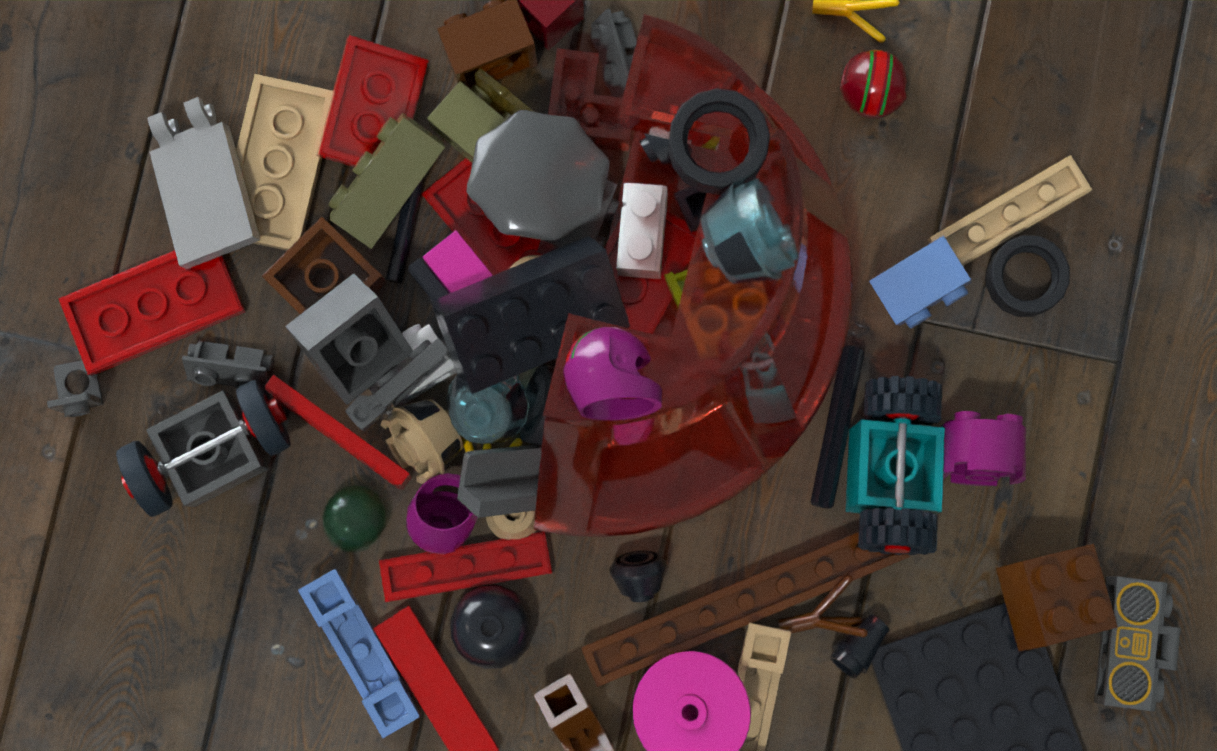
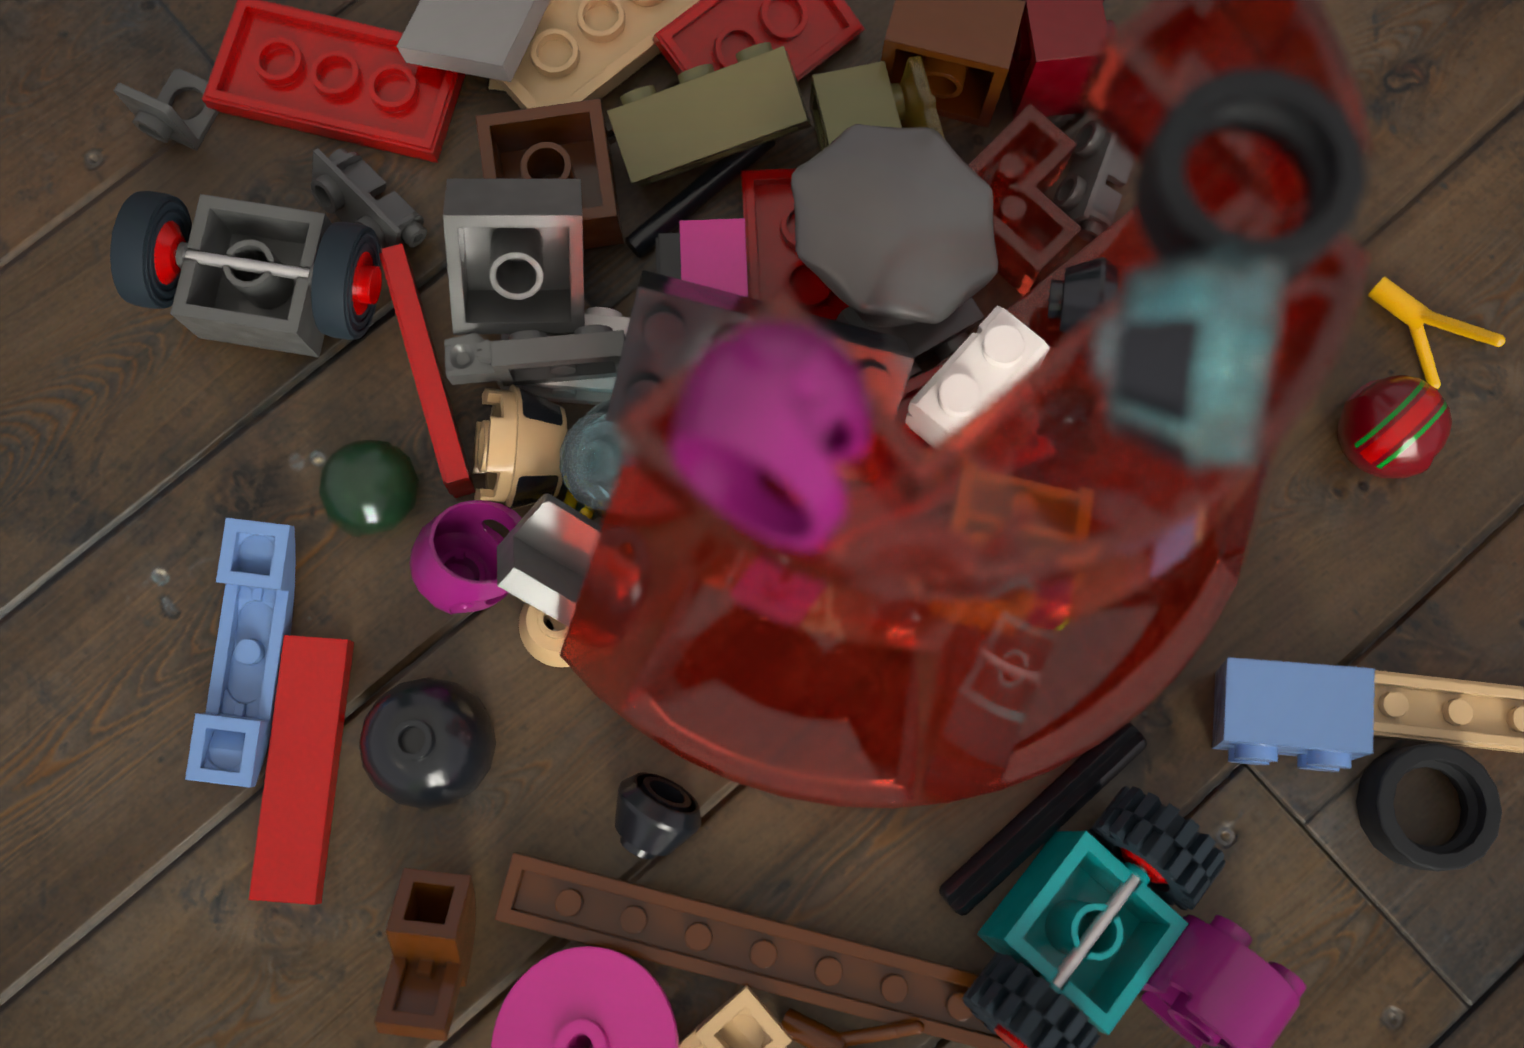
camera: 35 degrees right, 5 degrees down
(465, 568) = (454, 646): red tile -> none

